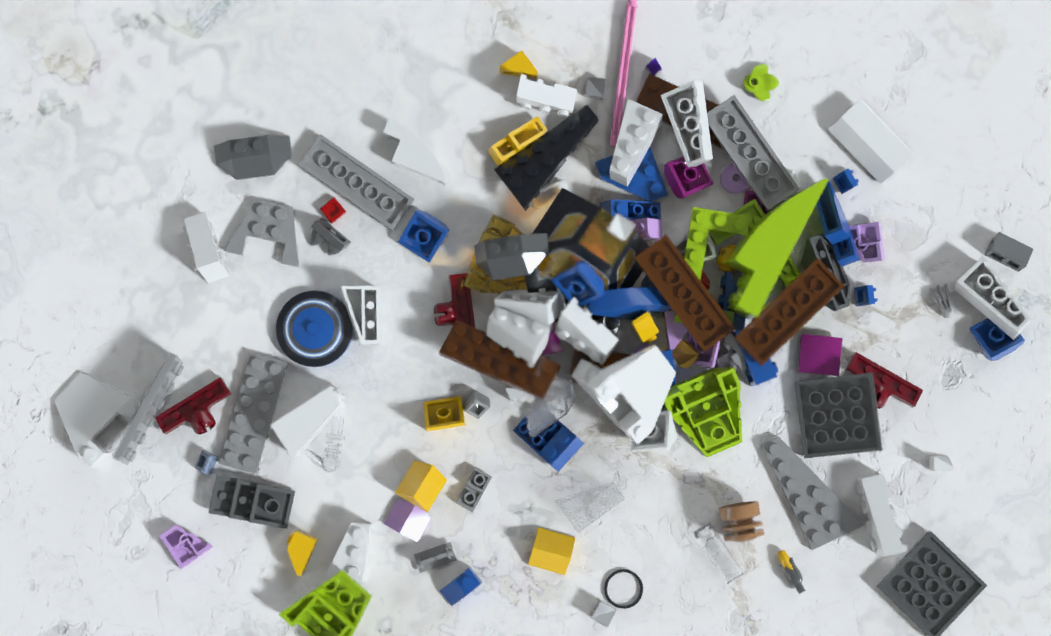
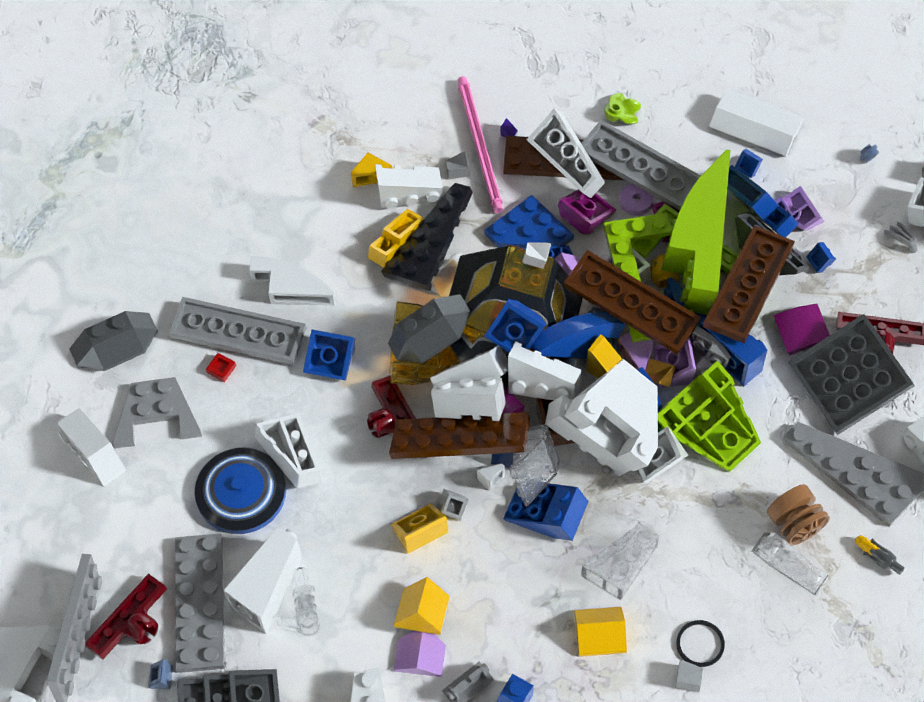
camera: 15 degrees left, 25 degrees down
(324, 231) = (215, 390): dark grey tile -> none
(473, 490) = (484, 595): light grey slope -> none
(634, 139) = (517, 192): white wedge -> none
(952, 209) = (869, 153): none -> sand blue plate

